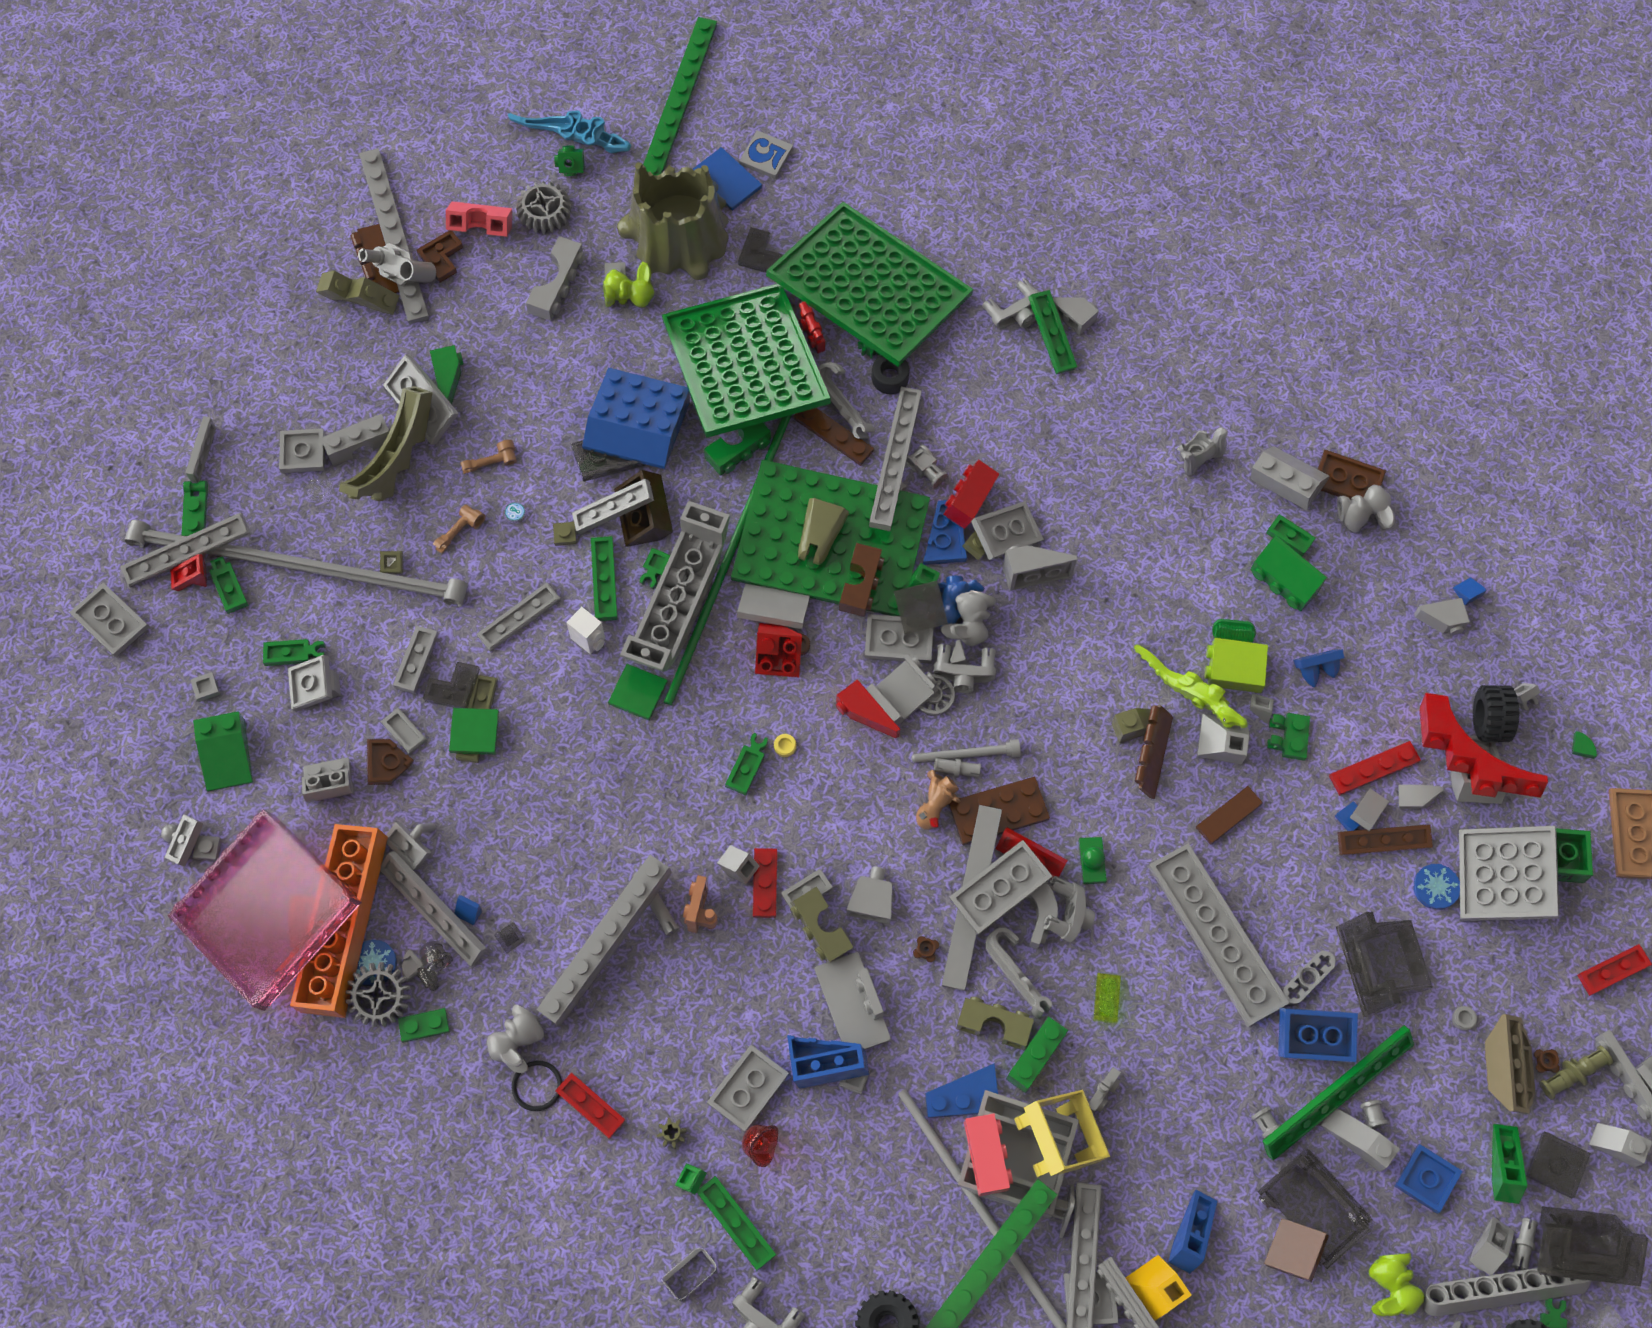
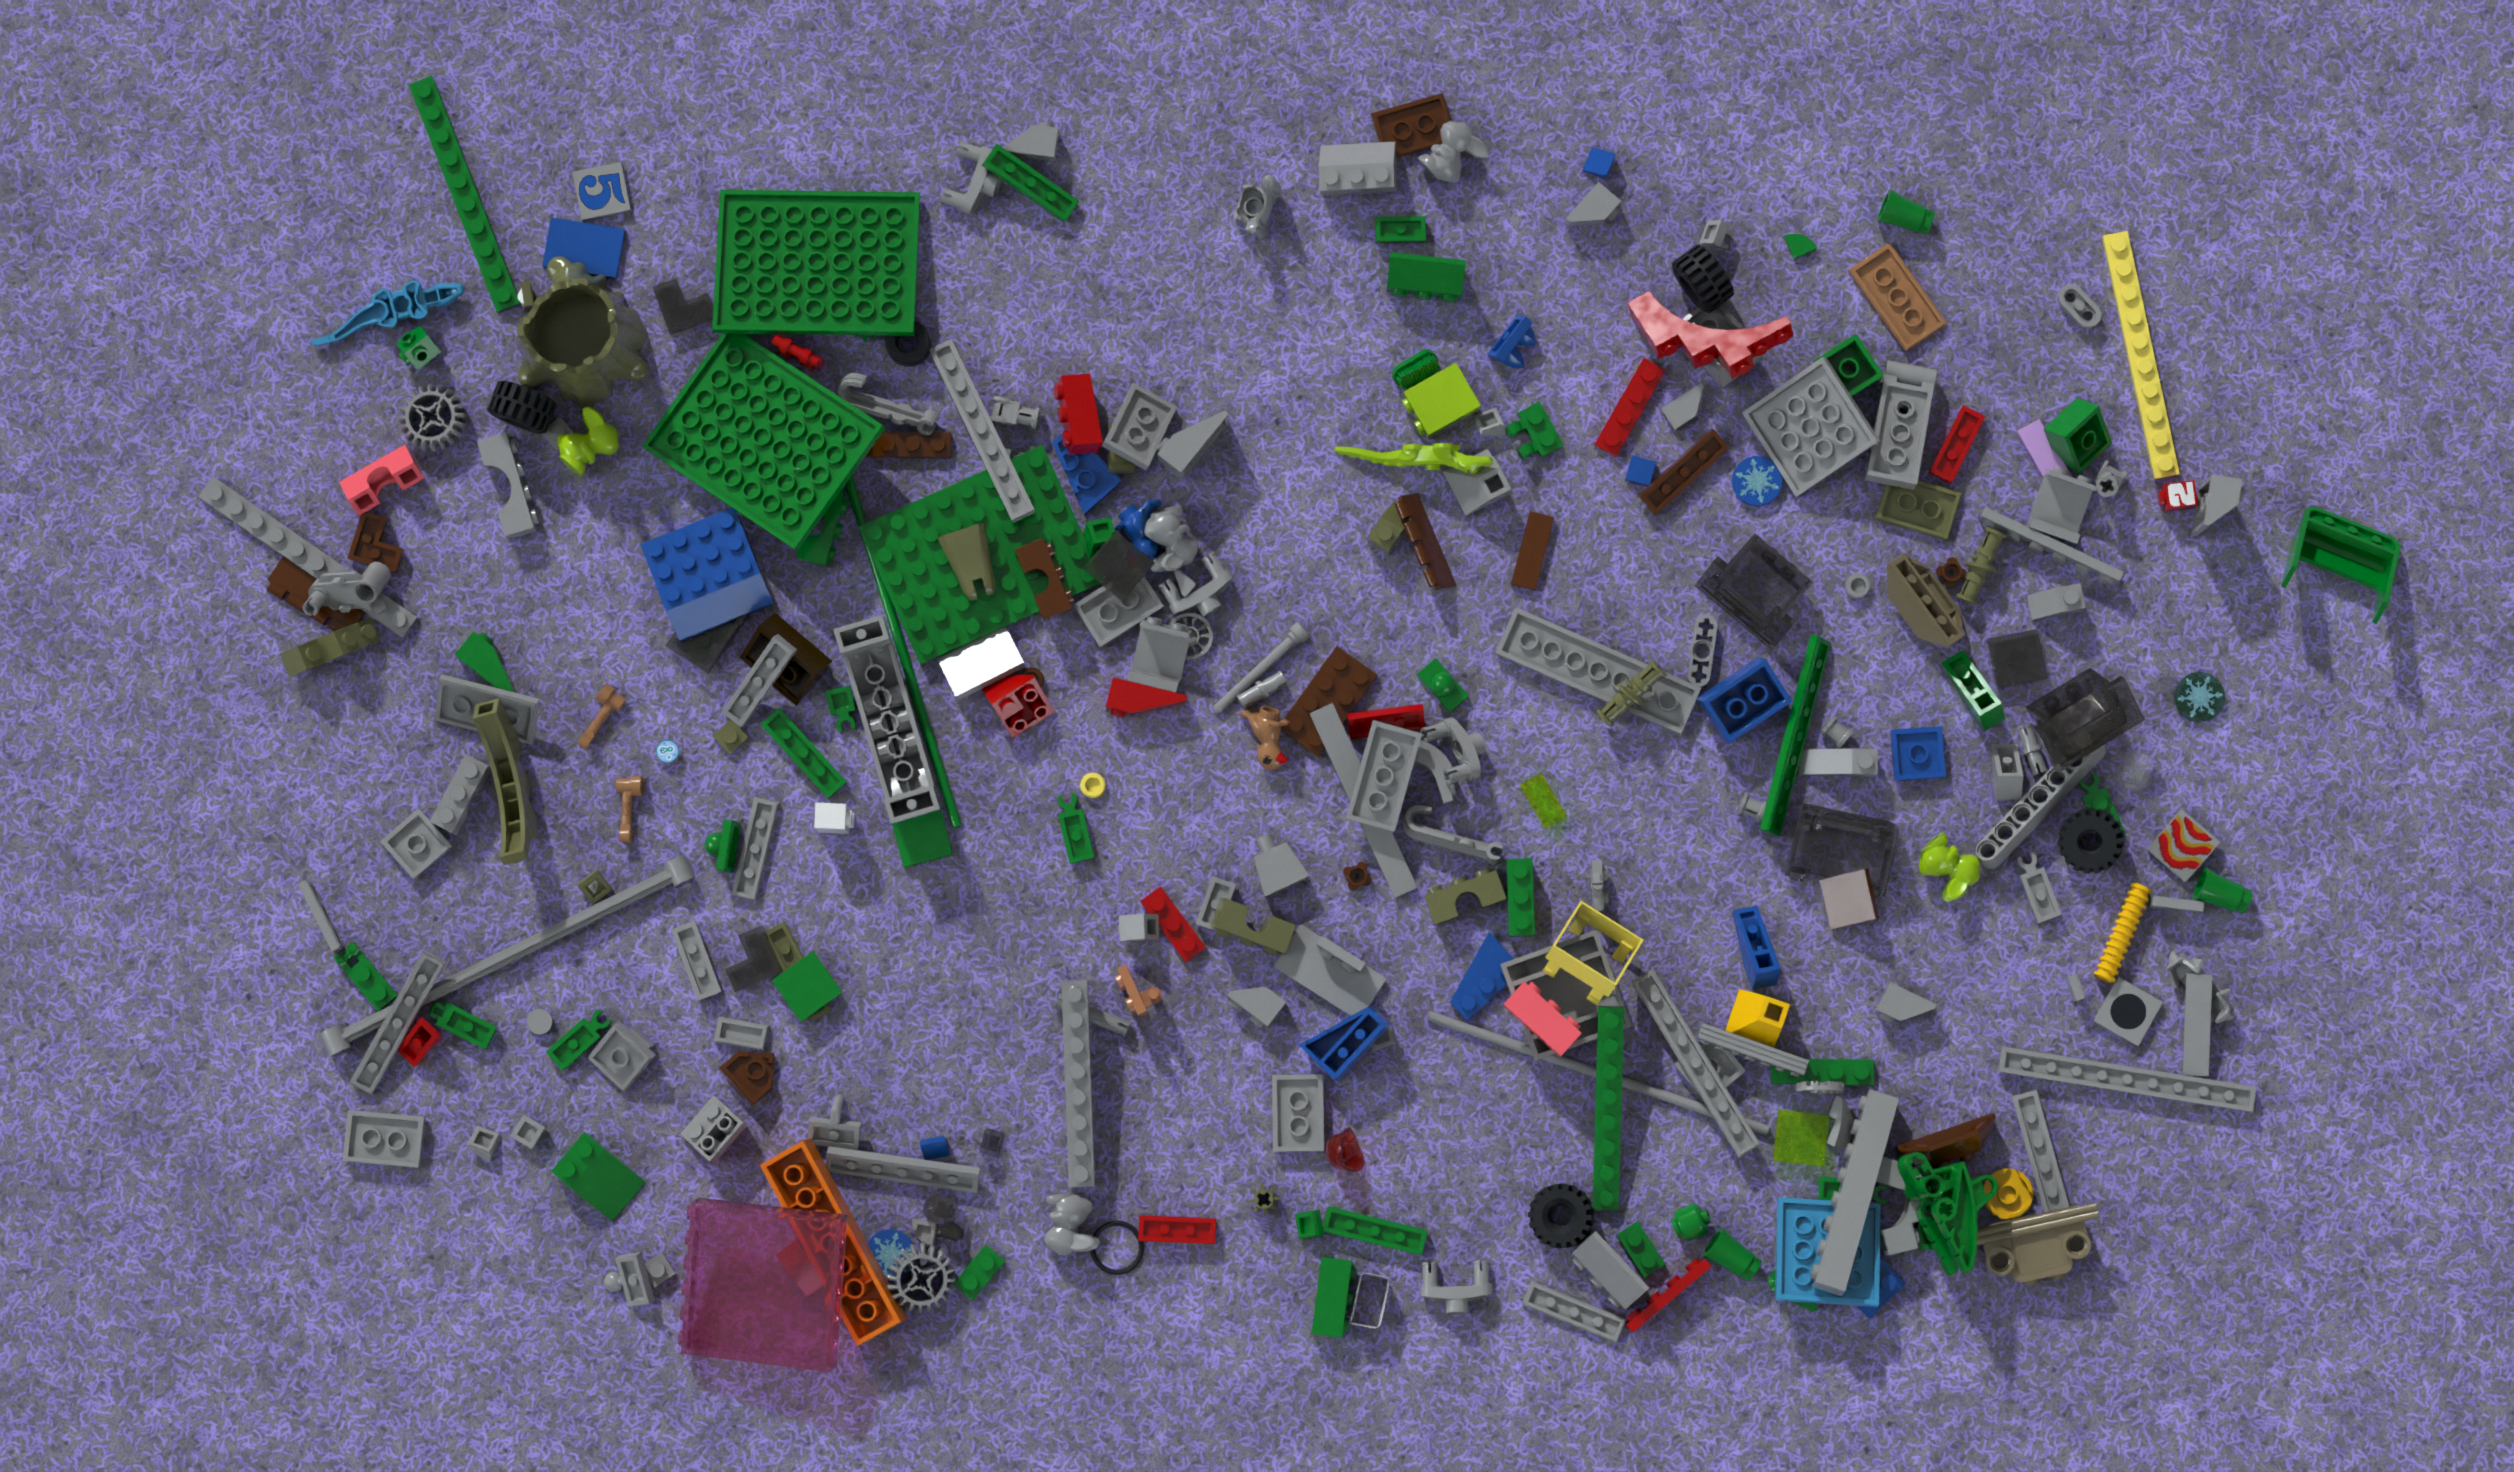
camera: 30 degrees left, 15 degrees up
(170, 672) = (483, 1142): none -> light grey slope
(278, 622) = (540, 1022): none -> light grey tile
(500, 598) = (724, 845): none -> green tile
(604, 234) = (521, 407): none -> black tyre
(664, 1249) = (1333, 1297): none -> green brick
(783, 985) = (1259, 1002): none -> light grey slope
(1064, 1210) = (1637, 1011): light grey piece -> none
(1233, 965) = (1632, 693): none -> olive piece
(1369, 809) = (1651, 453): light grey tile -> none
(1553, 994) = (1924, 510): none -> olive tile
(1580, 924) = (1901, 436): none -> light grey hinge

